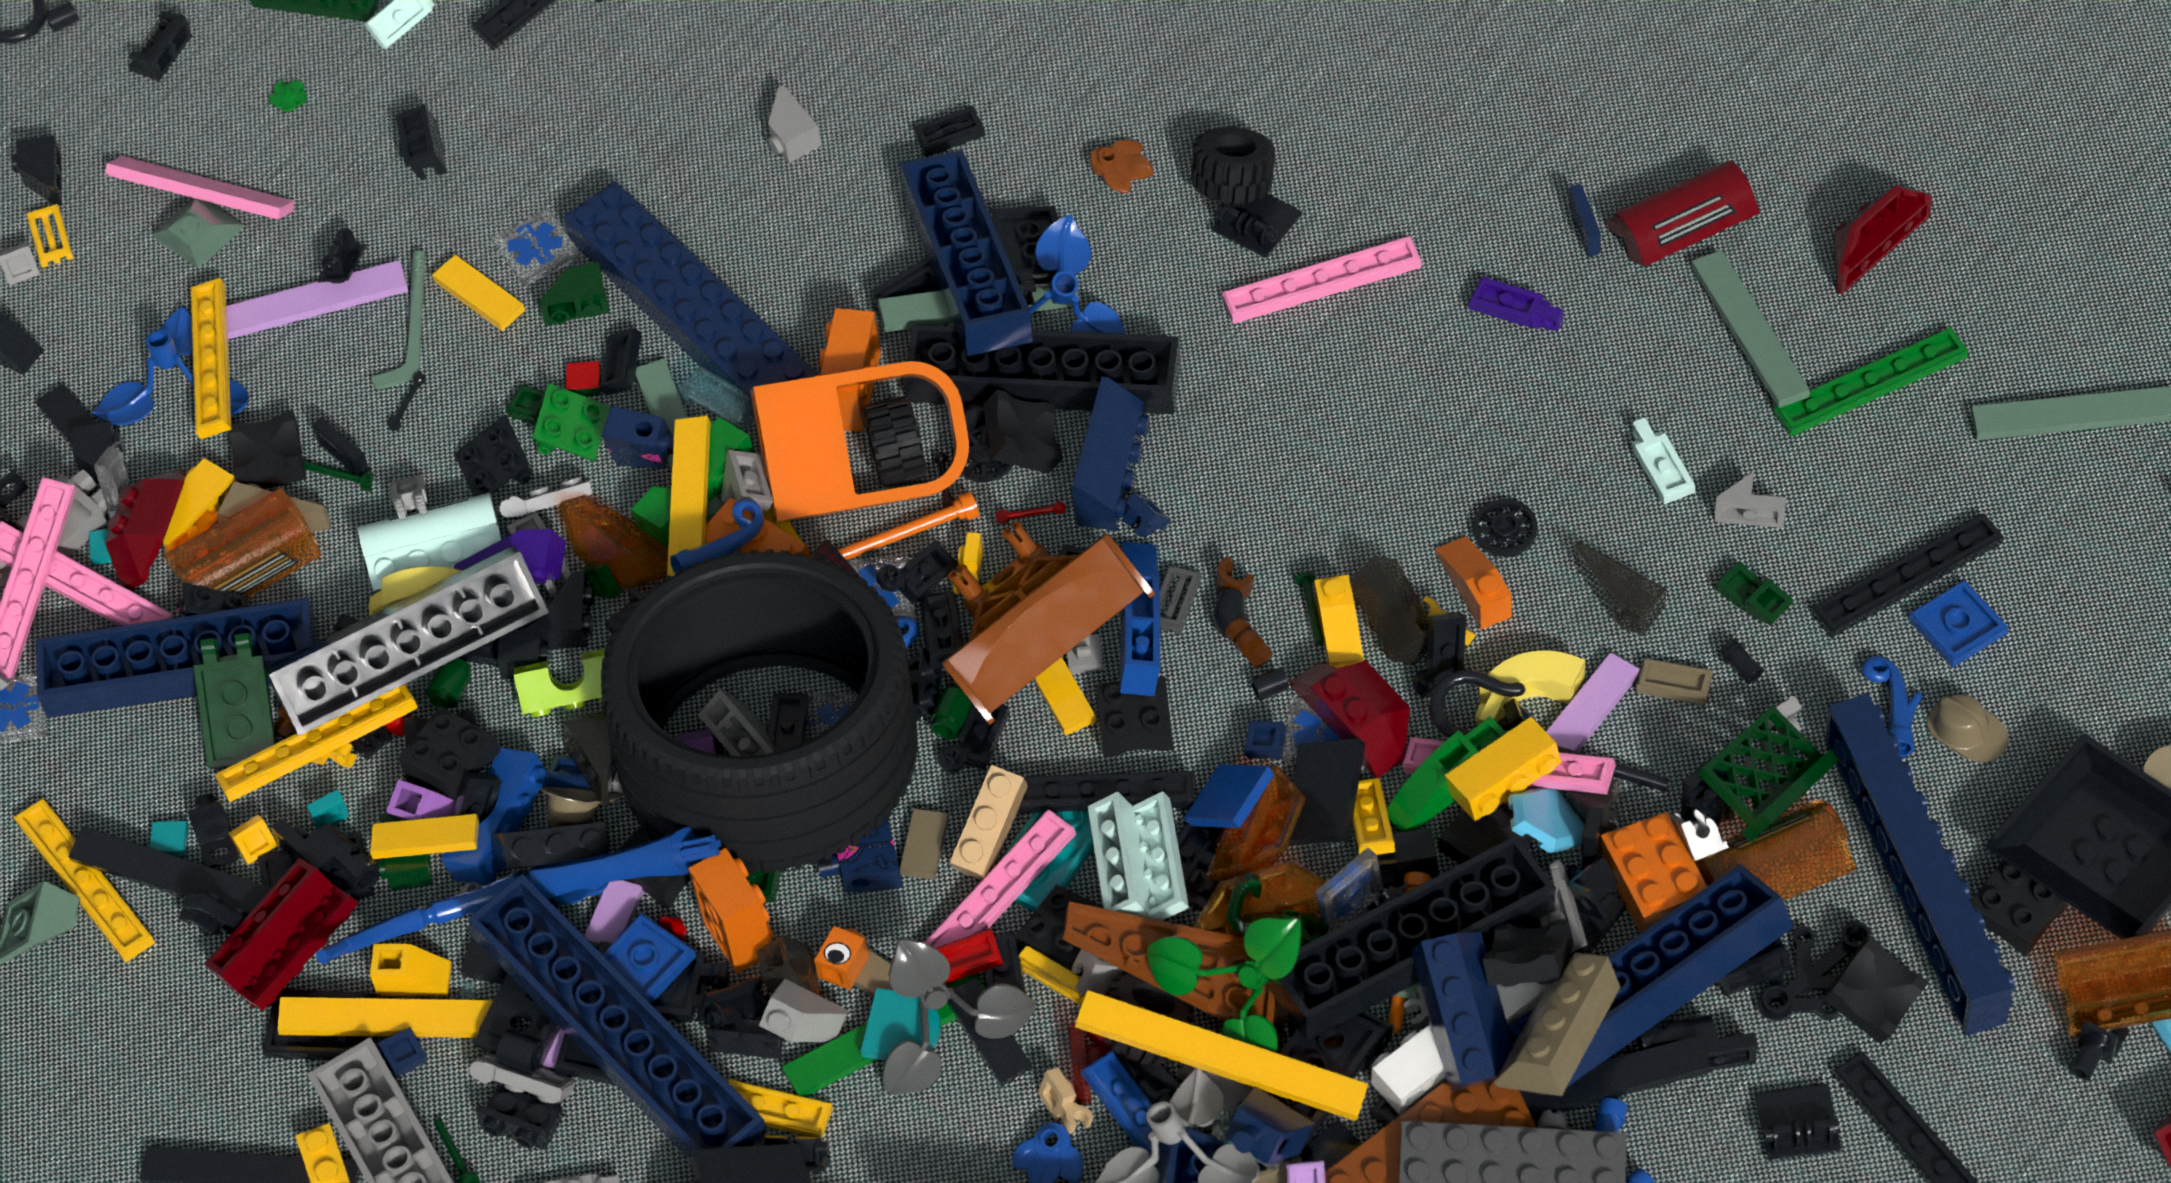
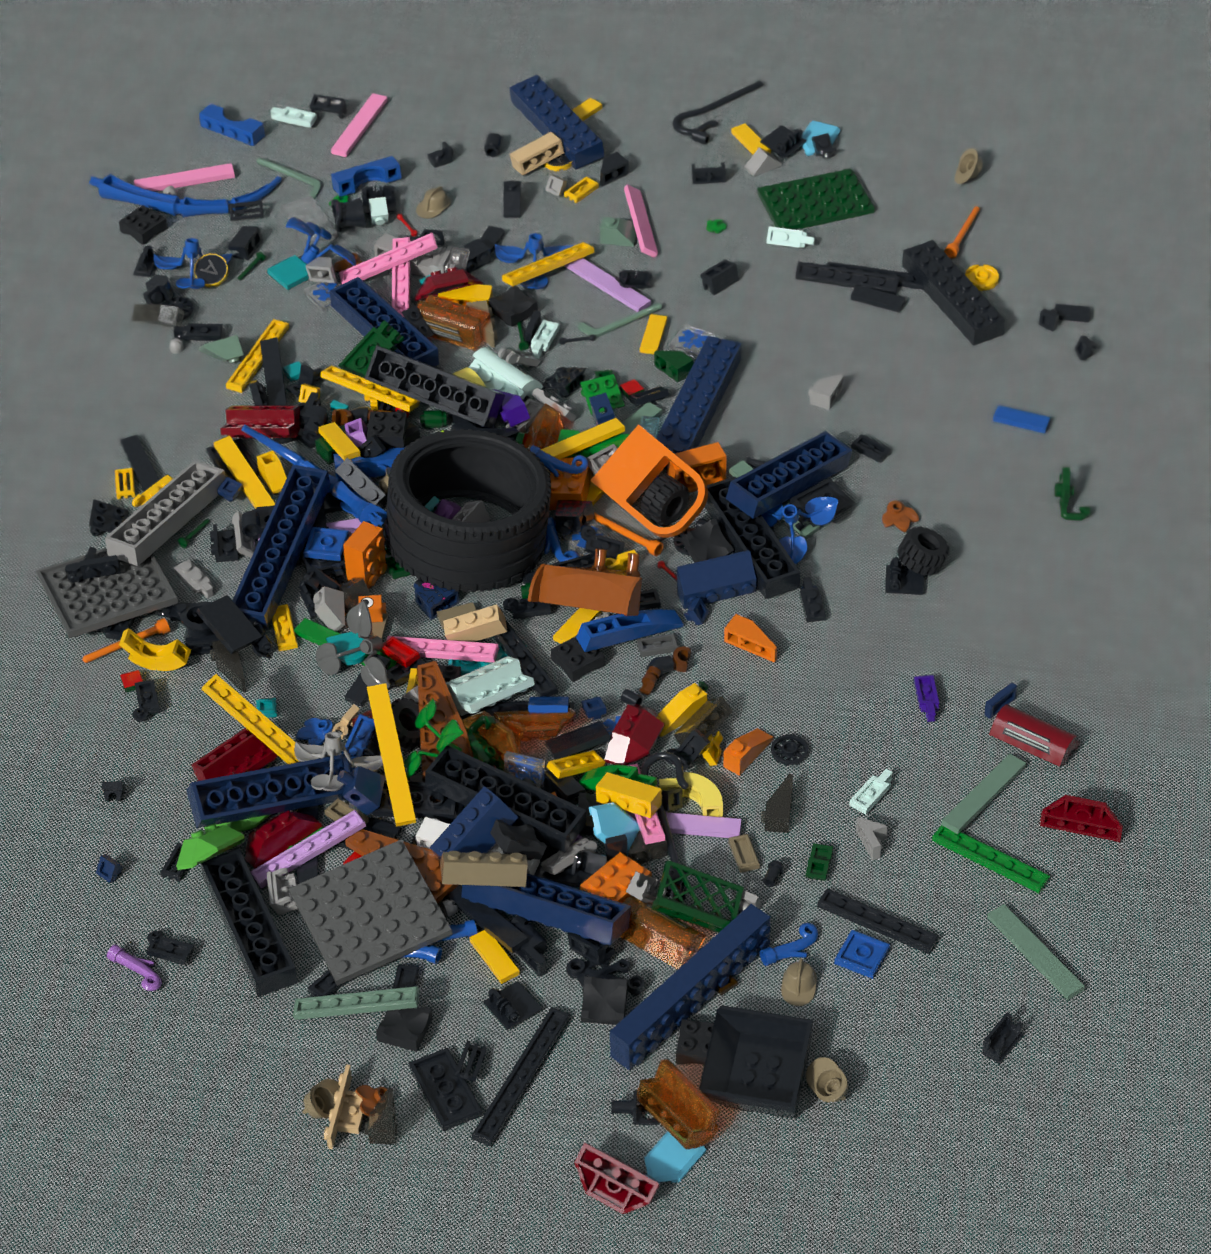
camera: 55 degrees right, 10 degrees down
(365, 780) = (344, 416): none -> reddish brown piece
(378, 446) = (544, 337): none -> light aqua hinge
(1223, 358) = (811, 602): none -> black hinge
(1249, 469) = (749, 637): none -> orange slope
(1321, 279) = (888, 619): bright pink tile -> none
(1684, 1104) = (494, 956): none -> yellow tile

